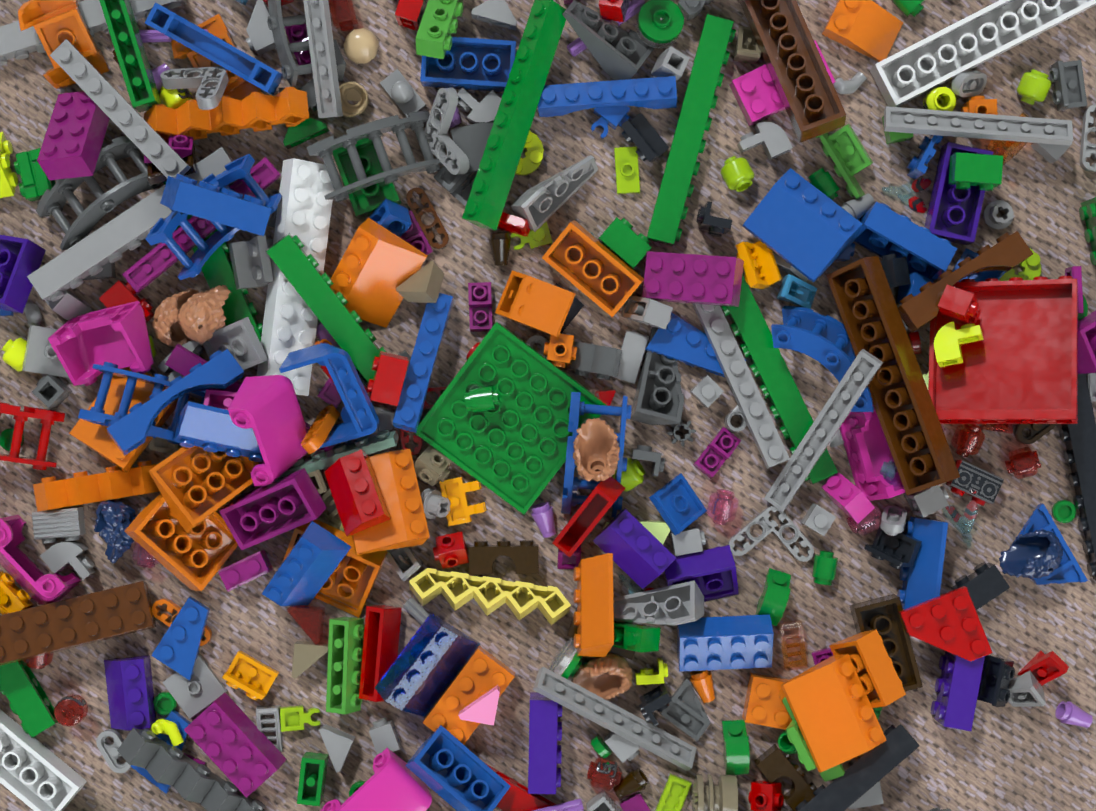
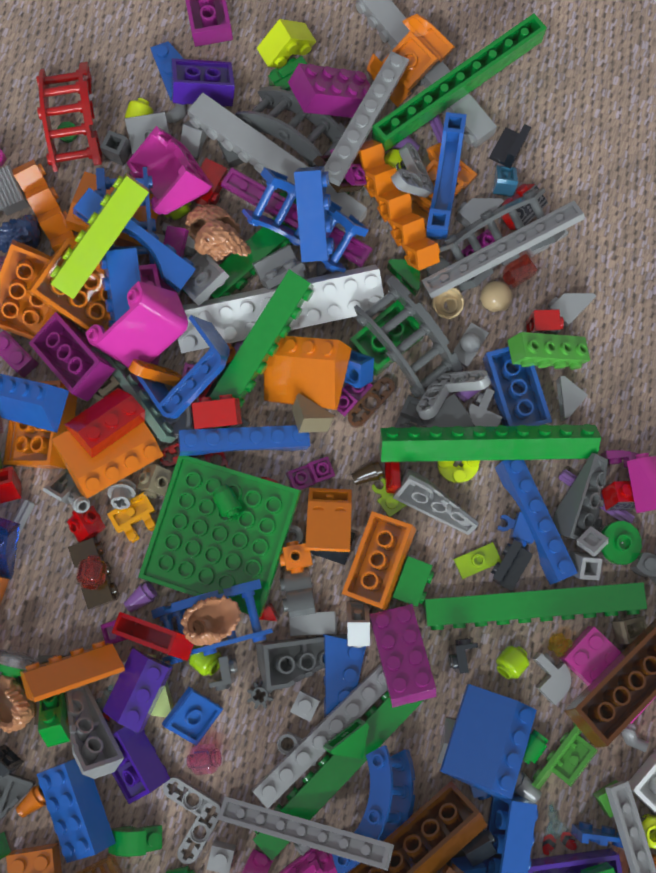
camera: 75 degrees right, 10 degrees down
(162, 434) = (99, 235): none -> lime brick
(430, 548) = (76, 500): none -> light grey pin
(490, 593) = (57, 572): light yellow brick -> none
(504, 557) = (91, 572): none -> clear red head
(648, 676) = (24, 745): neon yellow bracket -> none
(649, 49) = (592, 541): none -> light grey tile
(688, 541) = (161, 739): light grey brick -> none
(717, 452) = (253, 735): magenta slope -> none
(731, 121) = (558, 639): none -> clear yellow plate
(755, 358) = (350, 741): none -> green slope
(758, 264) = (437, 712): light orange bracket -> none
(796, 291) = (426, 757): dark azure slope -> none

